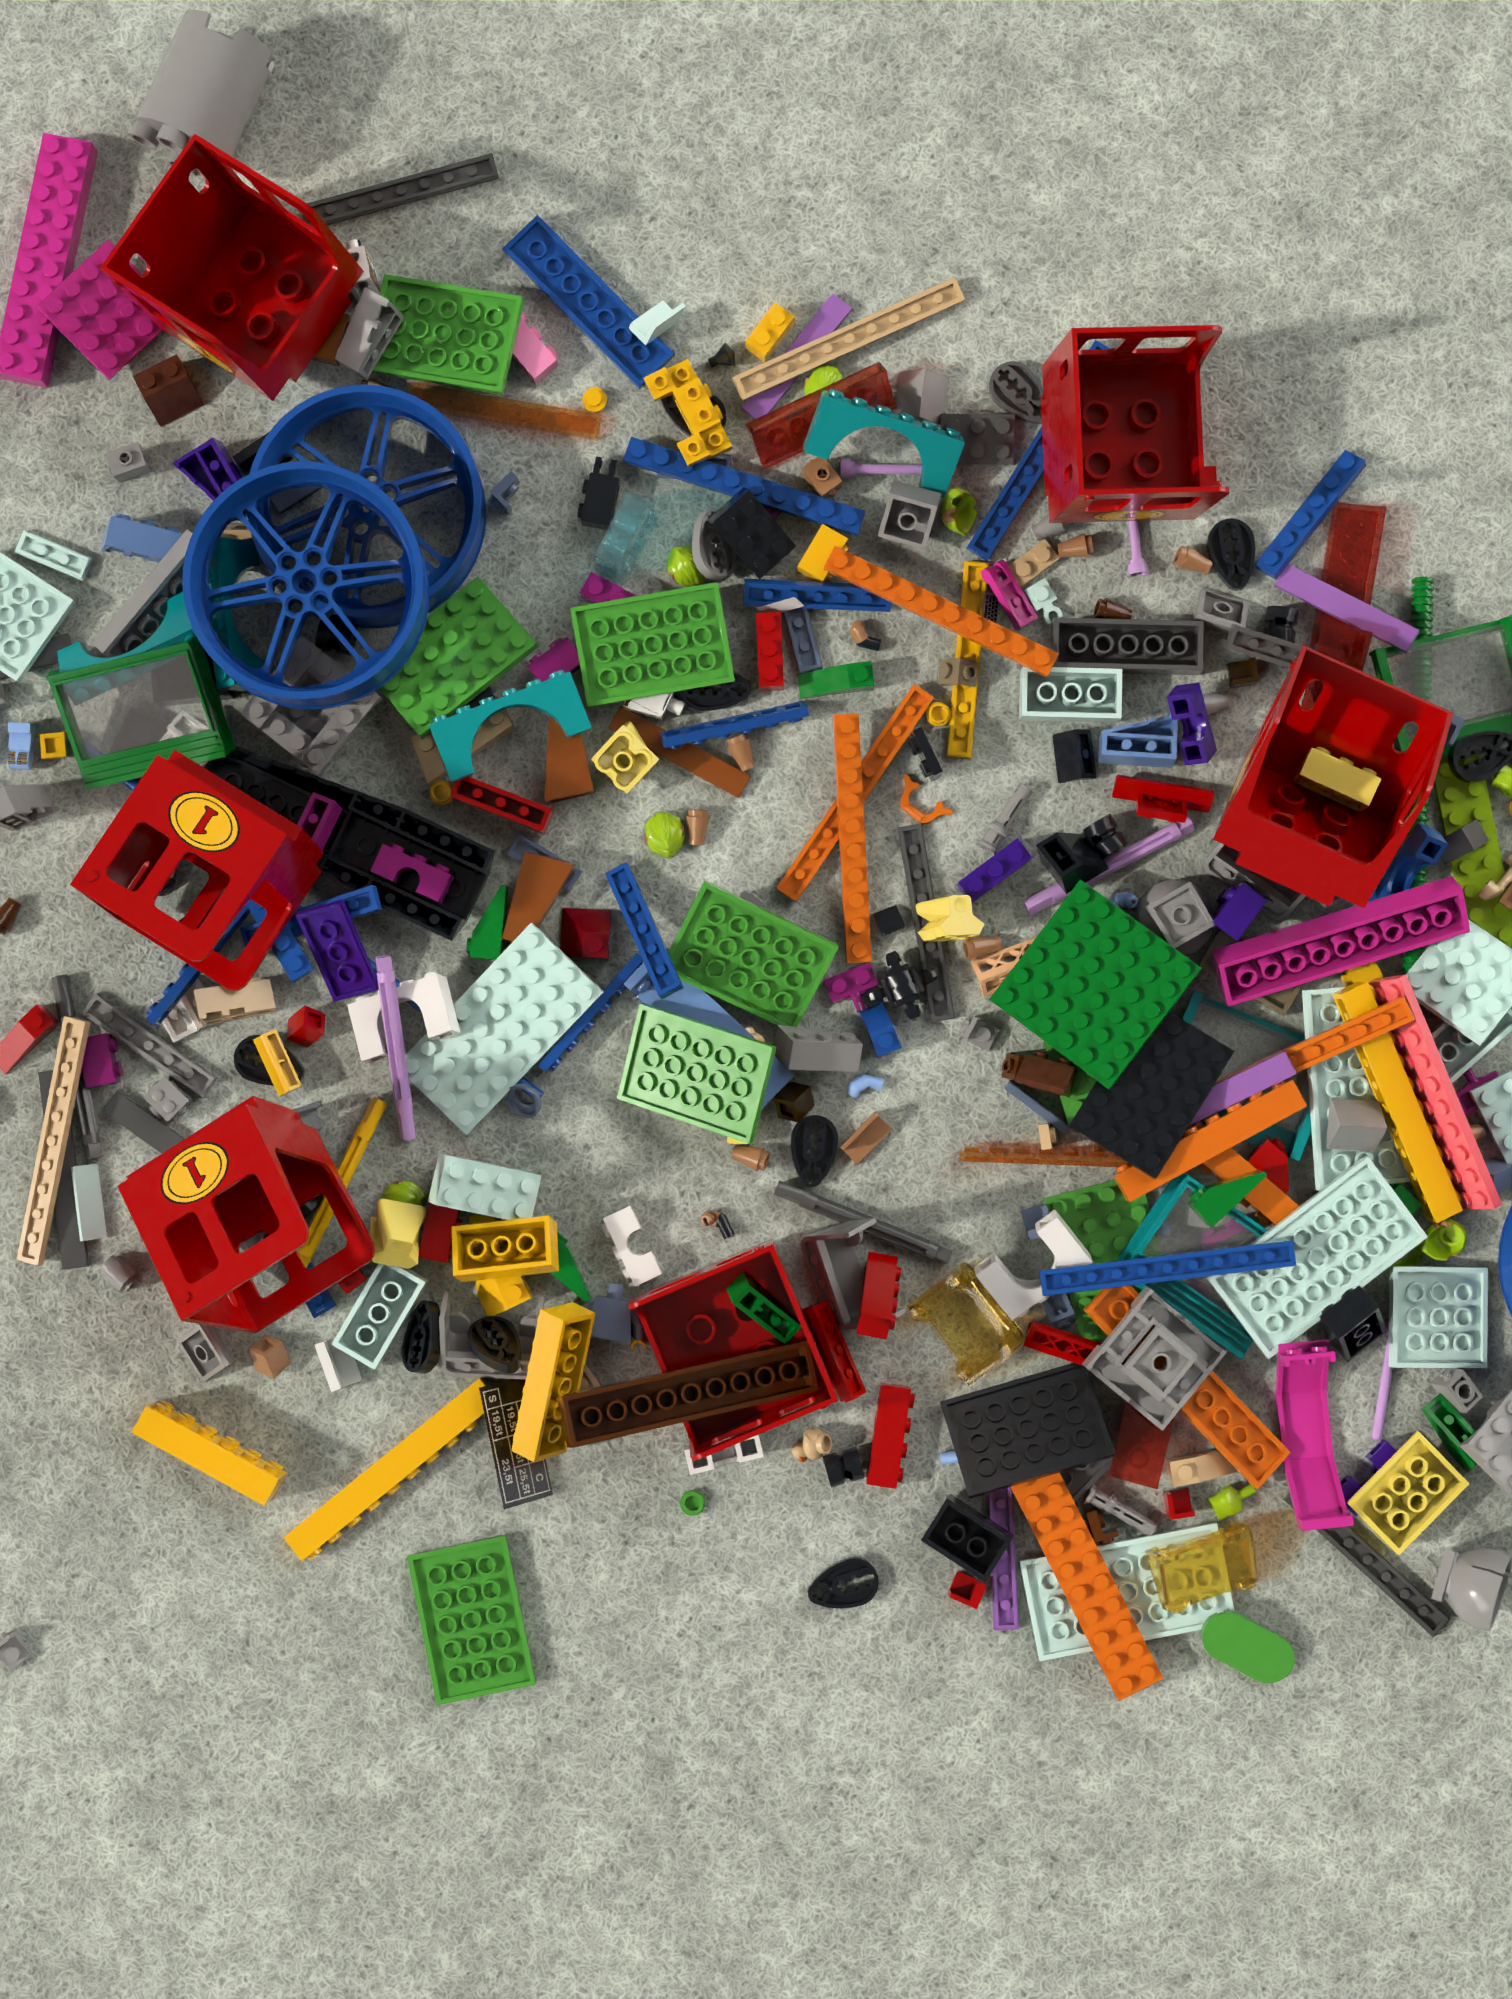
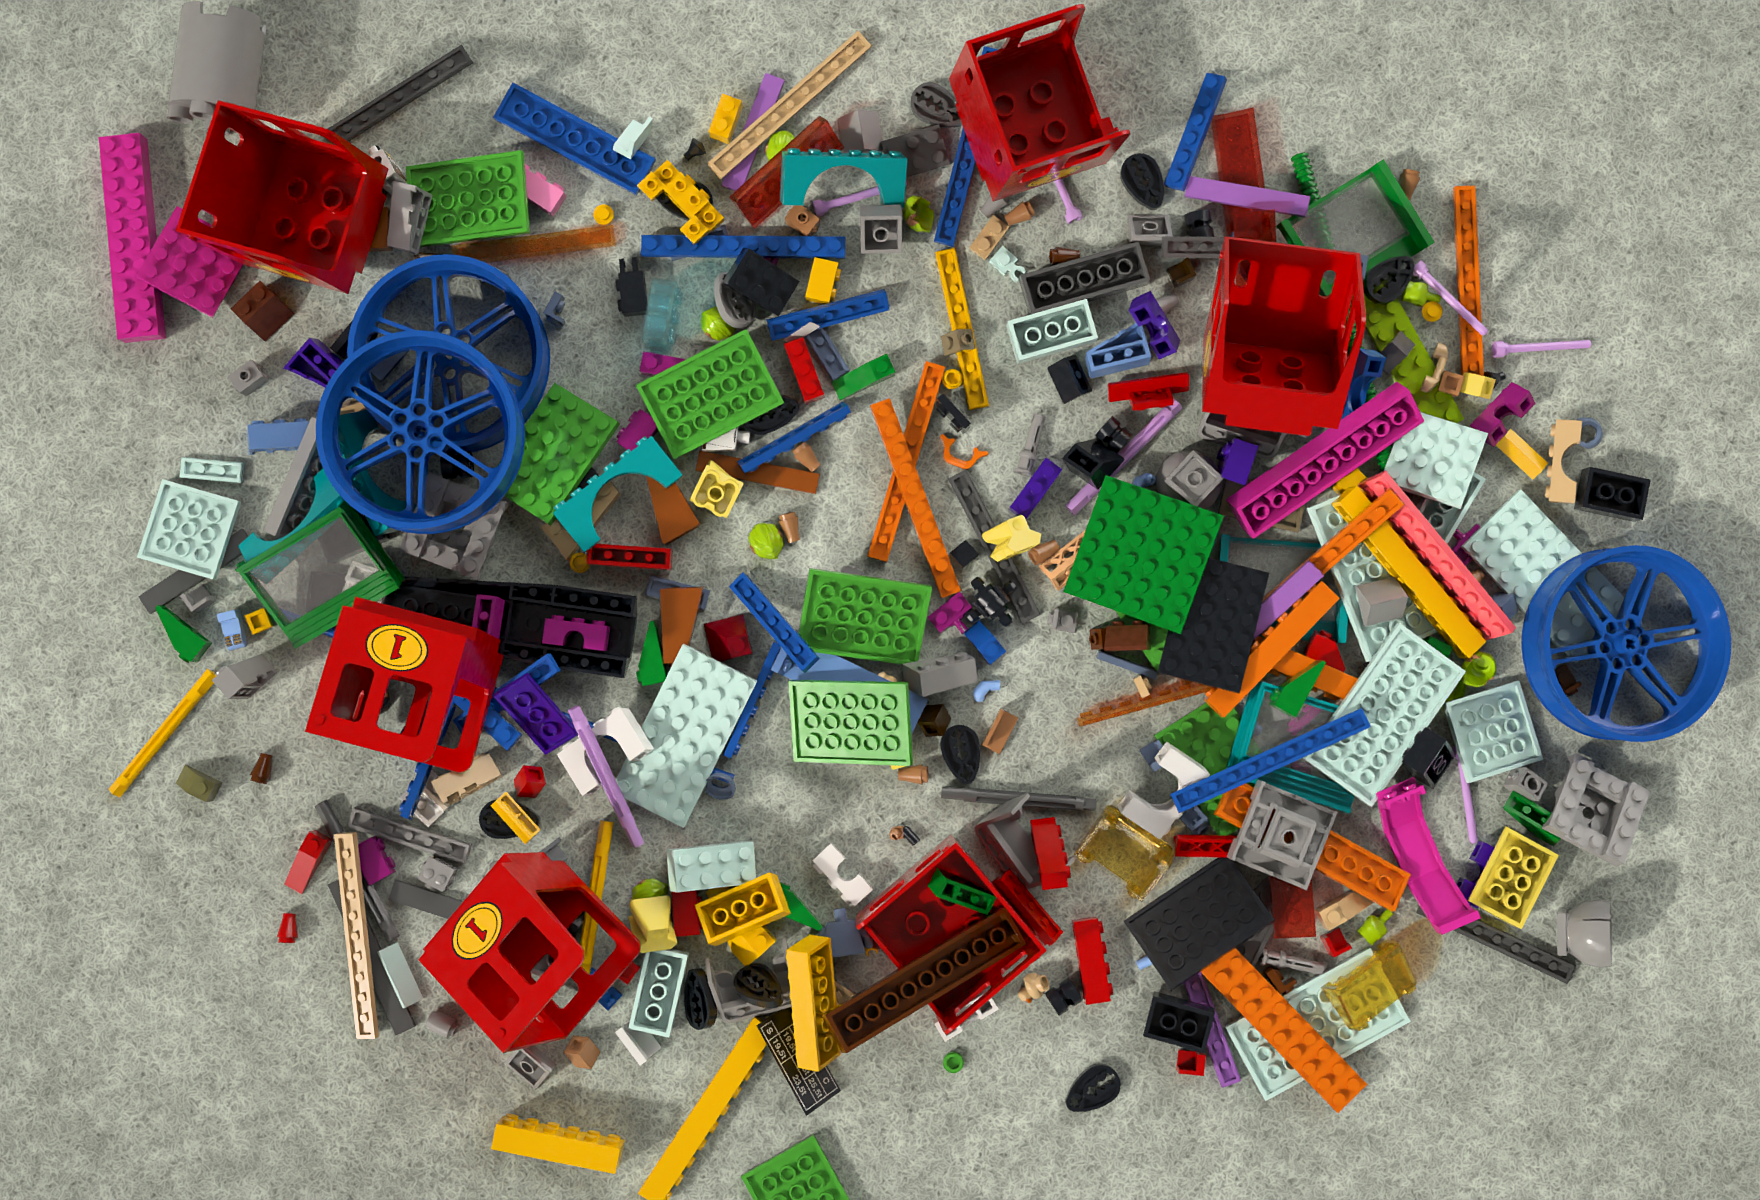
camera: 25 degrees left, 0 degrees up
(861, 637) = (872, 336): arm -> none
(941, 611) = (929, 297): orange plate -> none
(990, 606) = (968, 288): sticker -> none
(1009, 594) = (979, 267): dark pink plate -> none
(1191, 560) = (1113, 196): medium nougat cone -> none
(1247, 1646) = (1425, 1037): bright green tile -> none
(1337, 779) = (1282, 333): light yellow slope -> none

